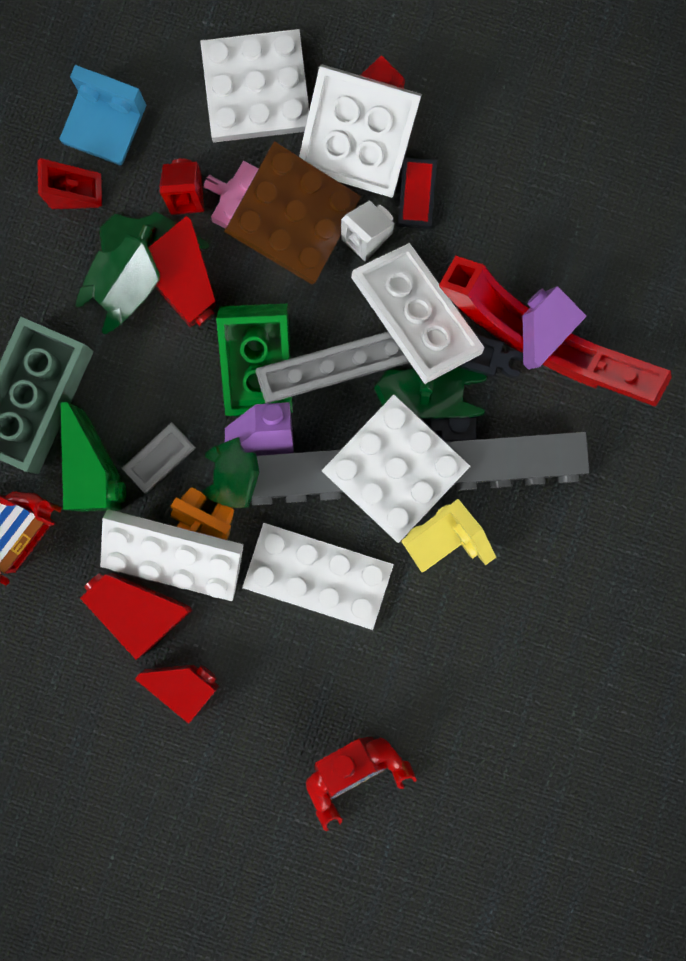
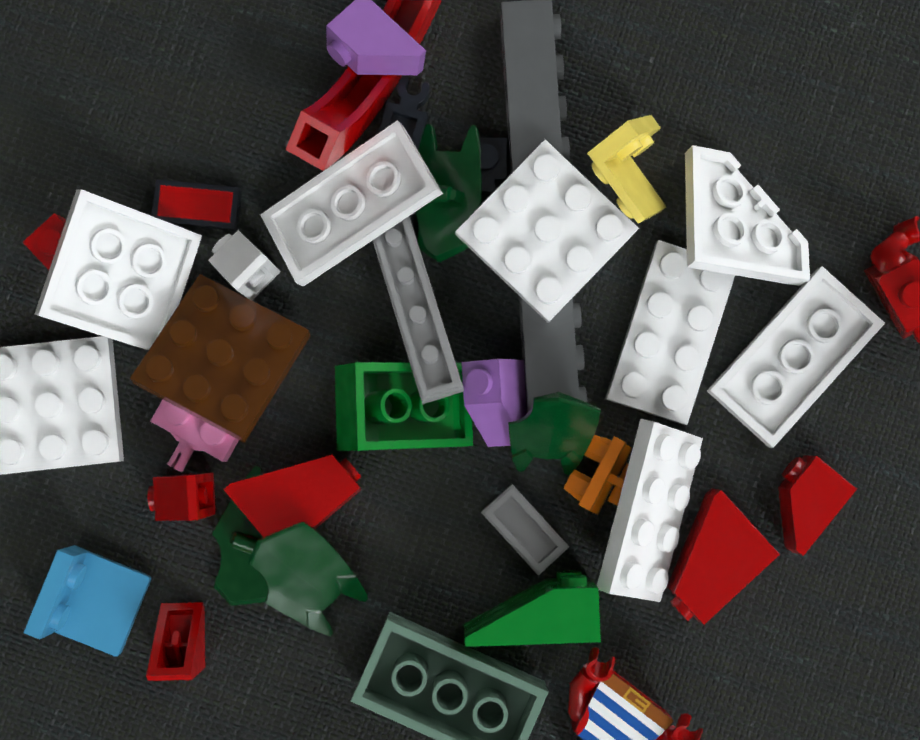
camera: 95 degrees left, 0 degrees up
(298, 677) = (795, 357): none -> white plate
(406, 628) = (736, 225): none -> white plate

